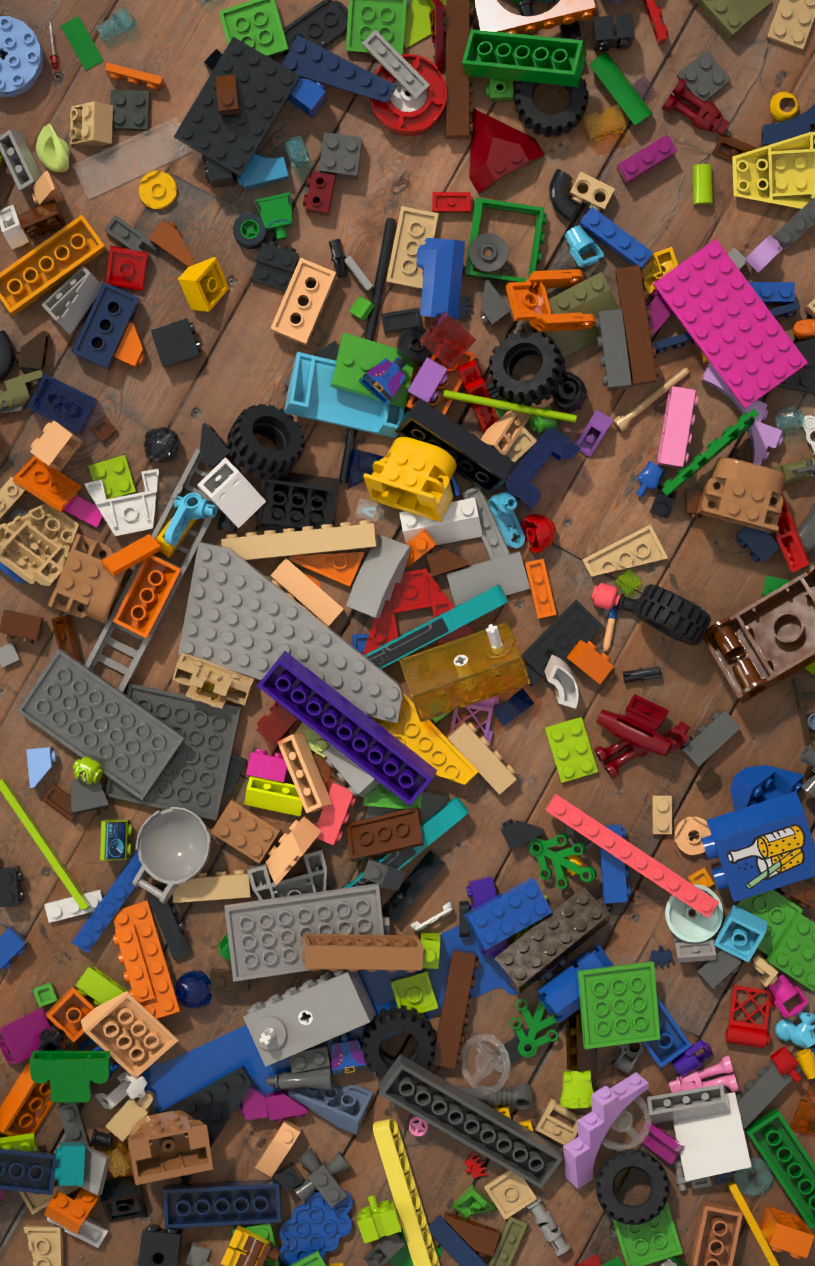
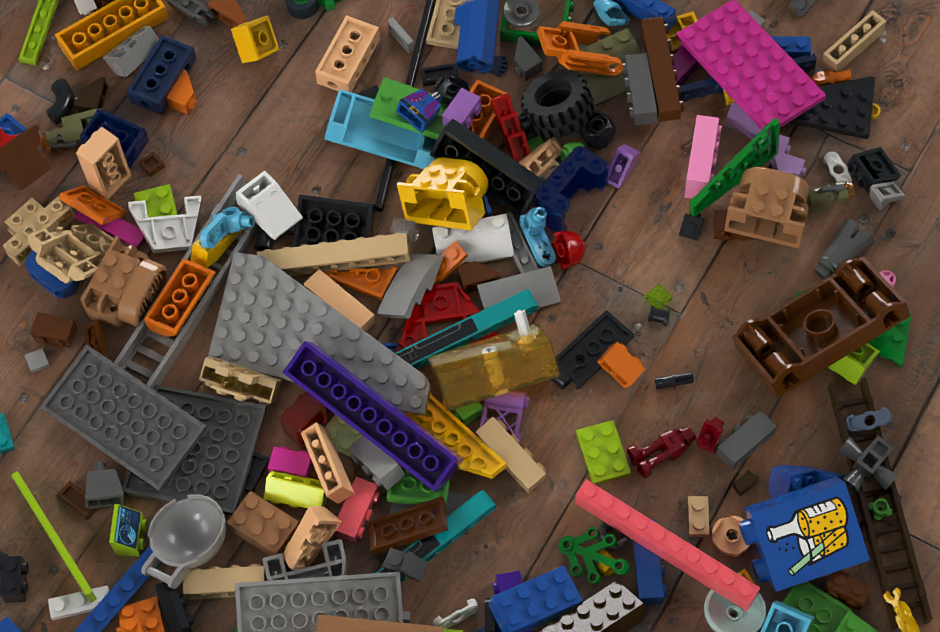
camera: 10 degrees right, 25 degrees down
(39, 764) = (58, 460): light blue slope -> none
(87, 770) = (105, 459): lime head -> none
(127, 268) = (186, 28): red tile -> none
(131, 555) = (166, 256): orange tile -> none
(161, 445) = (205, 173): black hair -> none
(176, 343) = (226, 89): black brick -> none
(212, 447) = (252, 165): black slope -> none
(274, 425) = (304, 162): black tyre -> none
(275, 265) = (321, 28): black plate -> none
(338, 258) = (381, 22): black axle -> none
(361, 308) = (402, 63): bright green tile -> none
(361, 464) = (392, 197): clear blue slope -> none
(413, 886) = (437, 585): black slope -> none
(447, 340) = (480, 73): clear red brick -> none
(509, 406) = (540, 134): lime piece -> none
(513, 707) = (546, 409): clear blue slope -> none
(519, 832) = (550, 530): black slope -> none
(540, 588) = (571, 302): orange plate -> none
(561, 676) = (594, 379): white brick -> none
(605, 596) = (635, 307): coral head -> none
(609, 629) = (641, 338): light nougat piece -> none
(623, 421) = (650, 157): tan piece -> none
(628, 552) = (660, 269): tan wing -> none
(638, 725) = (671, 422): dark red plate -> none
(649, 478) = (678, 204): blue piece -> none
(672, 614) = (702, 314): black tyre -> none
(758, 543) = (786, 261): dark blue brick -> none
(763, 253) = (780, 15): lavender brick -> none
(789, 419) = (812, 153): clear light blue head -> none
(790, 540) = (816, 252): red slope -> none

